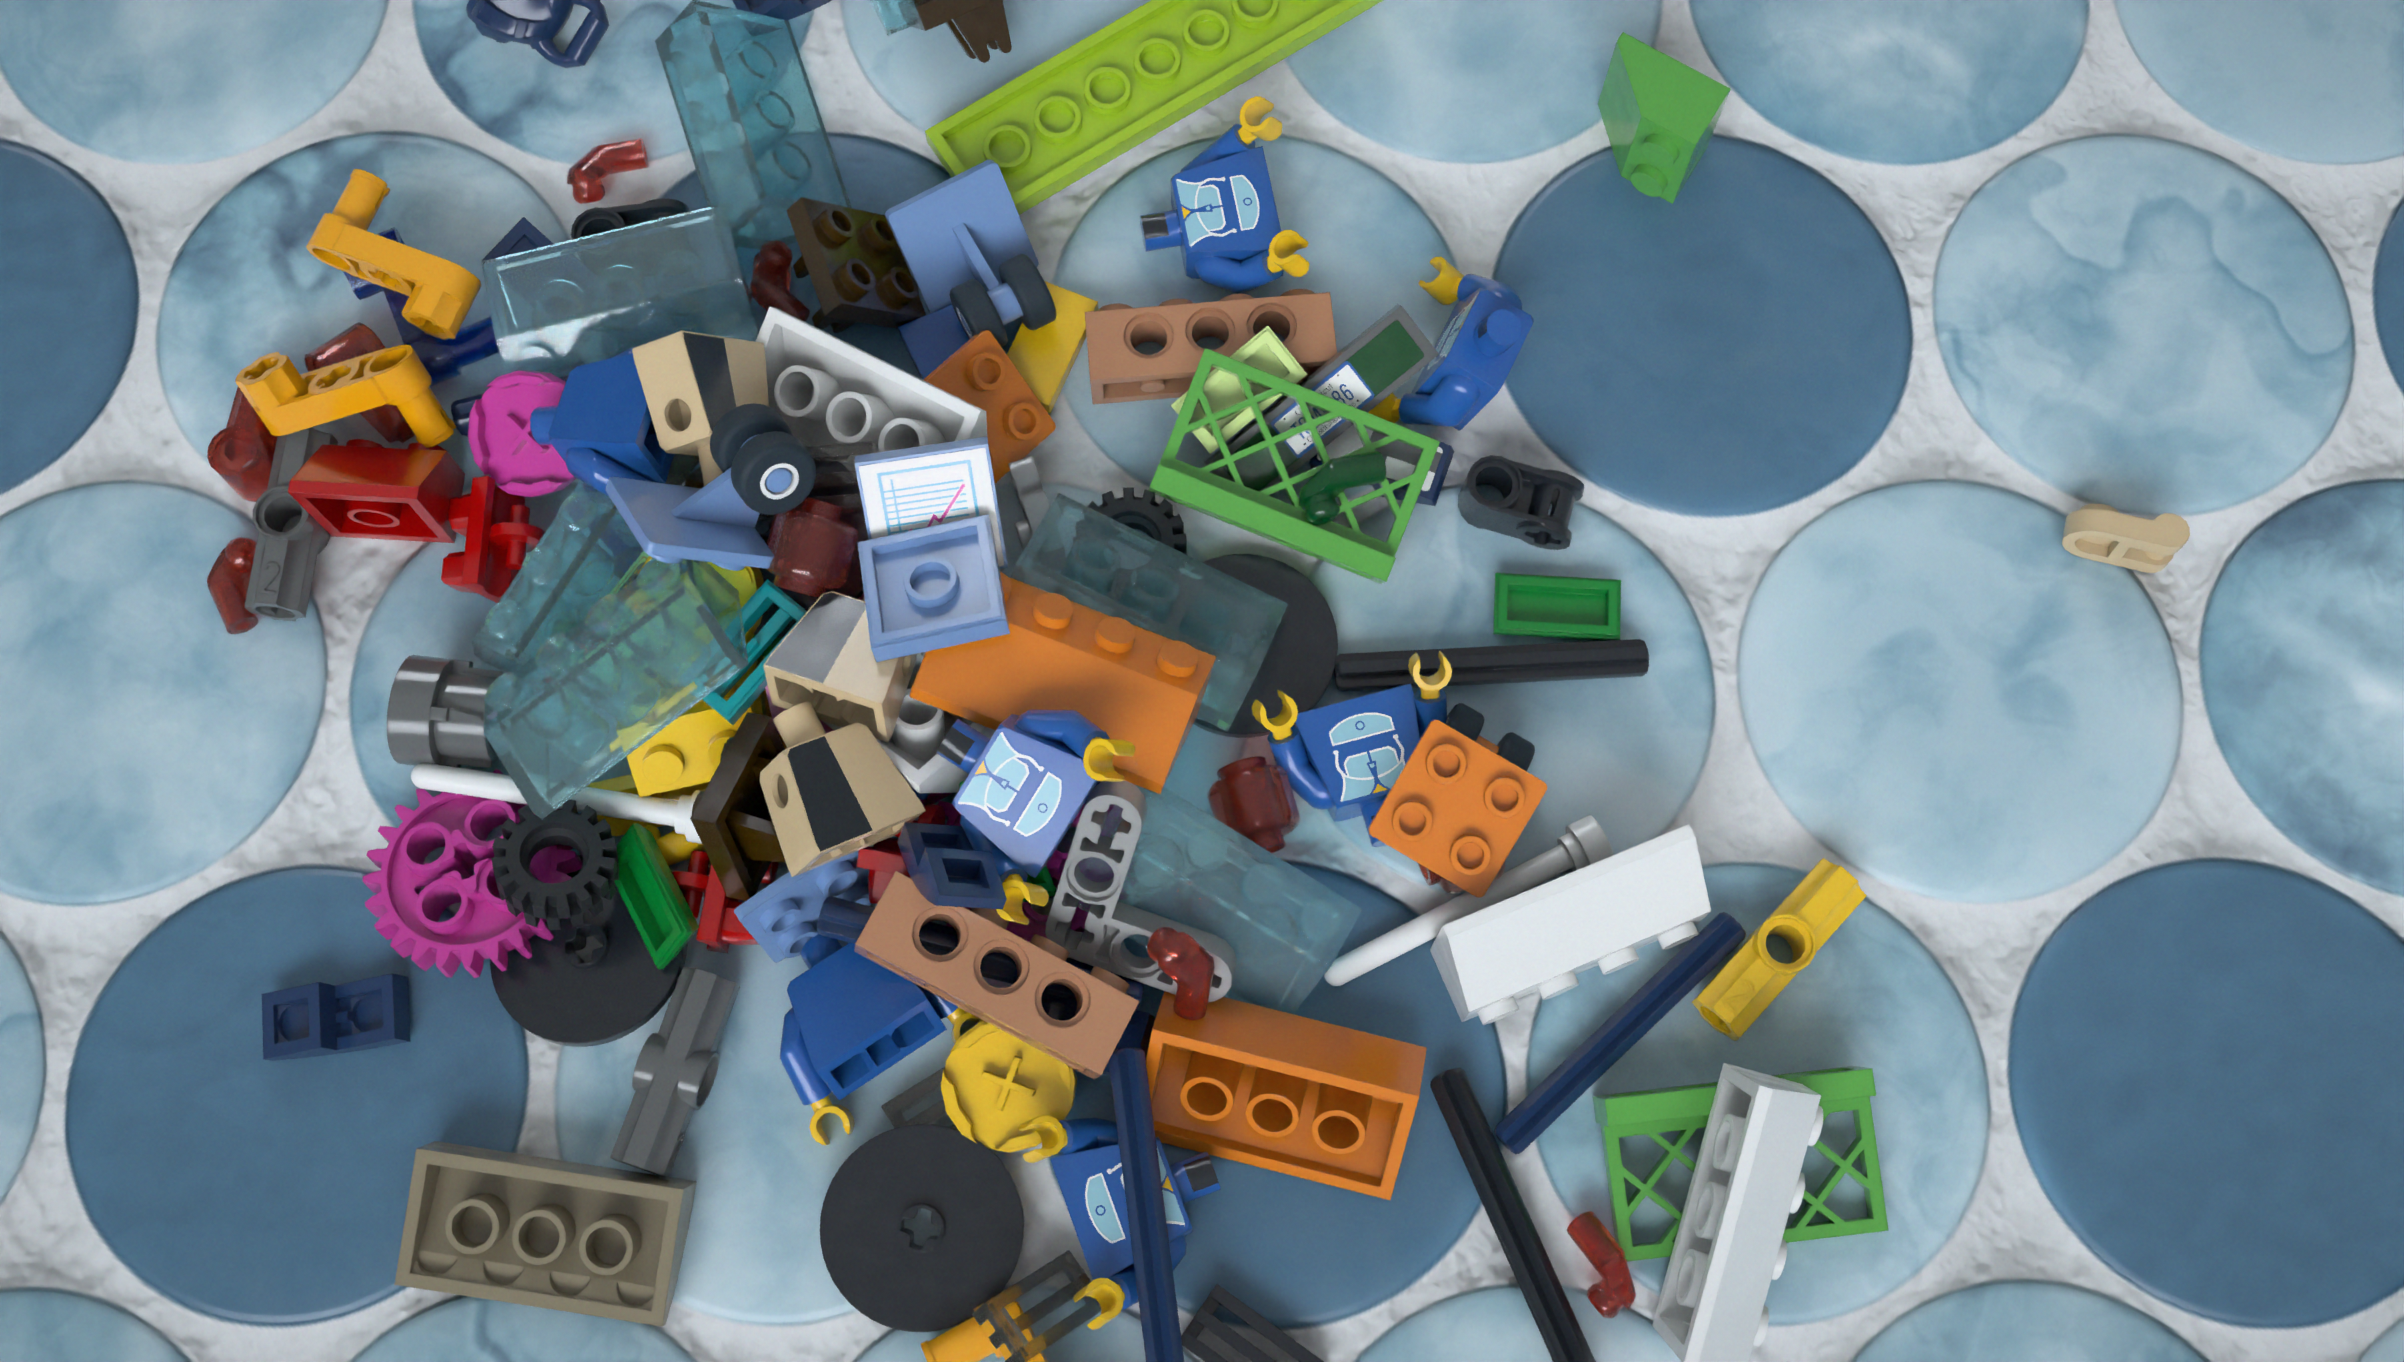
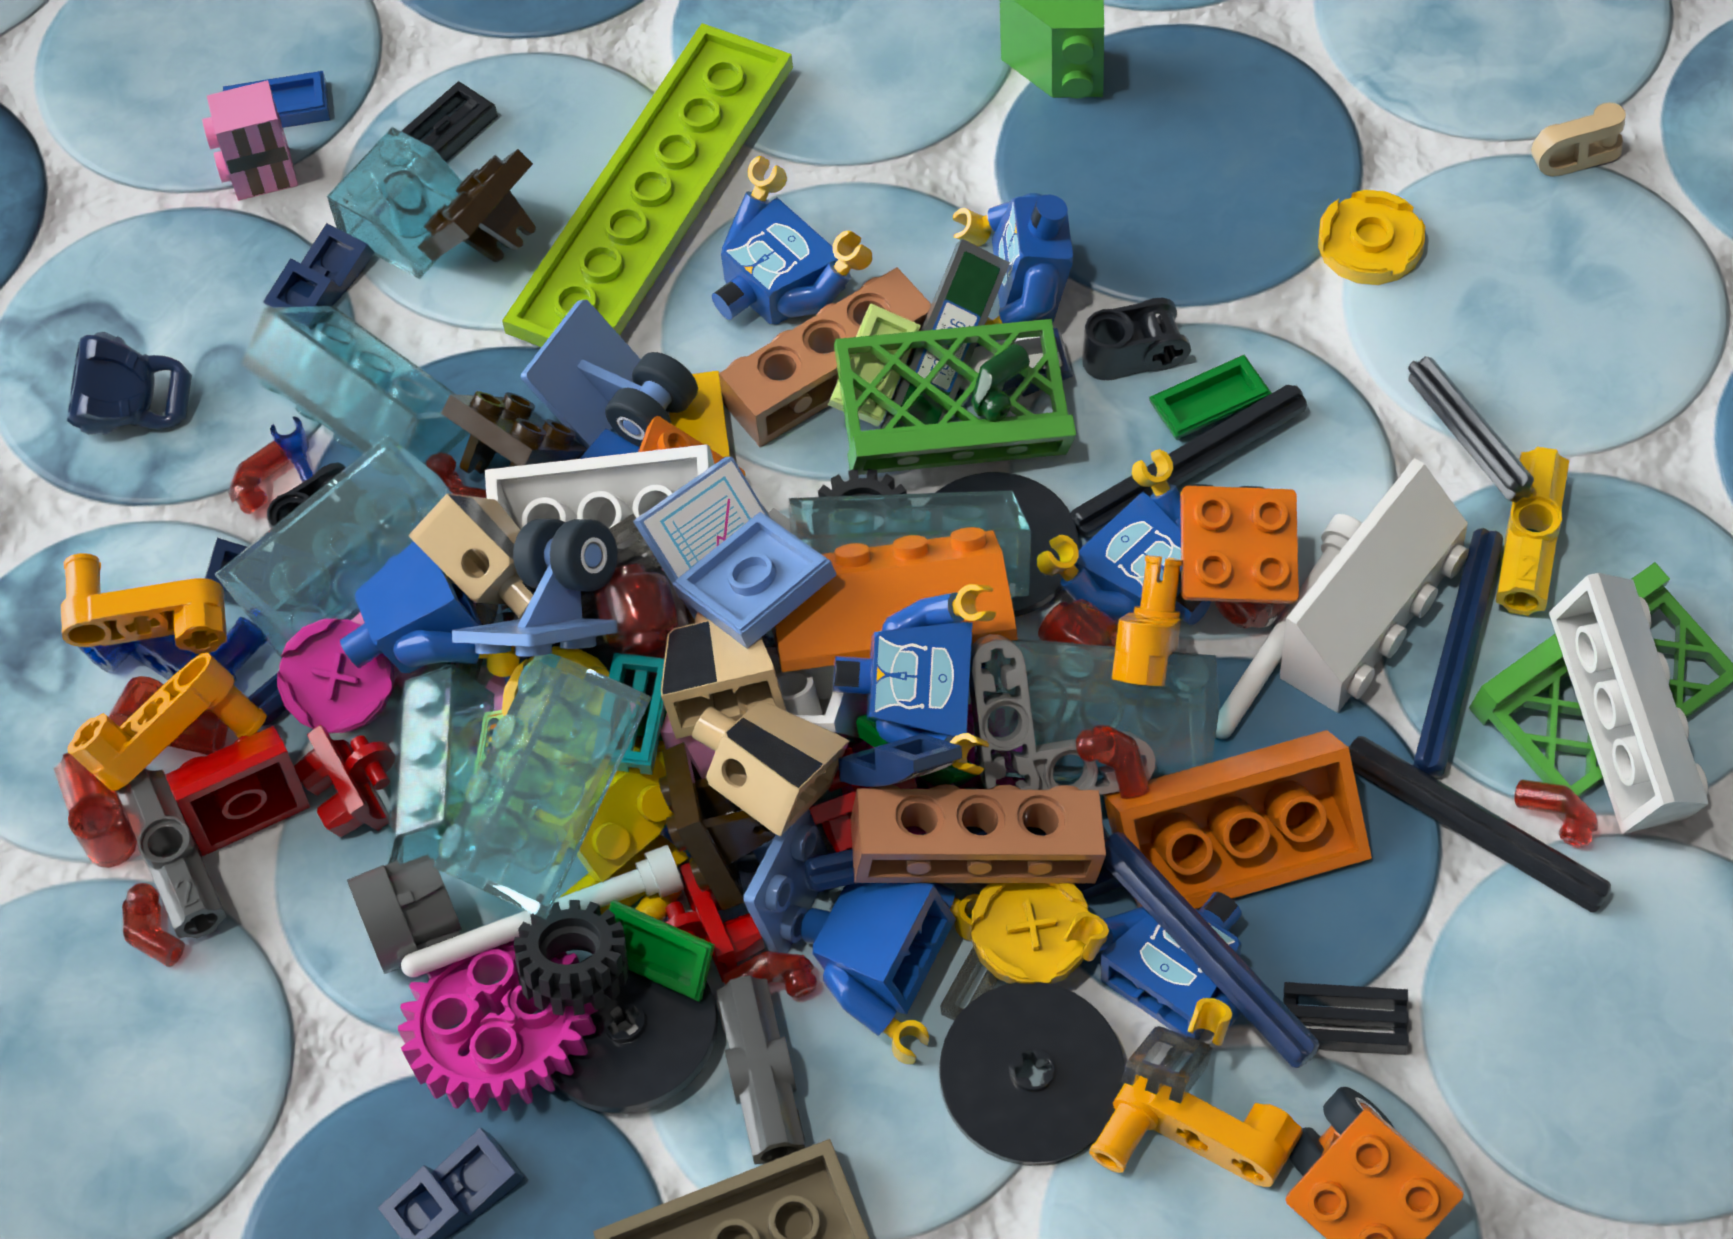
camera: 25 degrees left, 15 degrees down
(661, 155) = (295, 447): none -> clear blue hand
(750, 971) = (779, 967): none -> clear red arm
(1303, 853) = (1152, 629): none -> light orange beam
(1787, 805) = (1471, 429): none -> axle
(1838, 519) = (1371, 237): none -> yellow tile

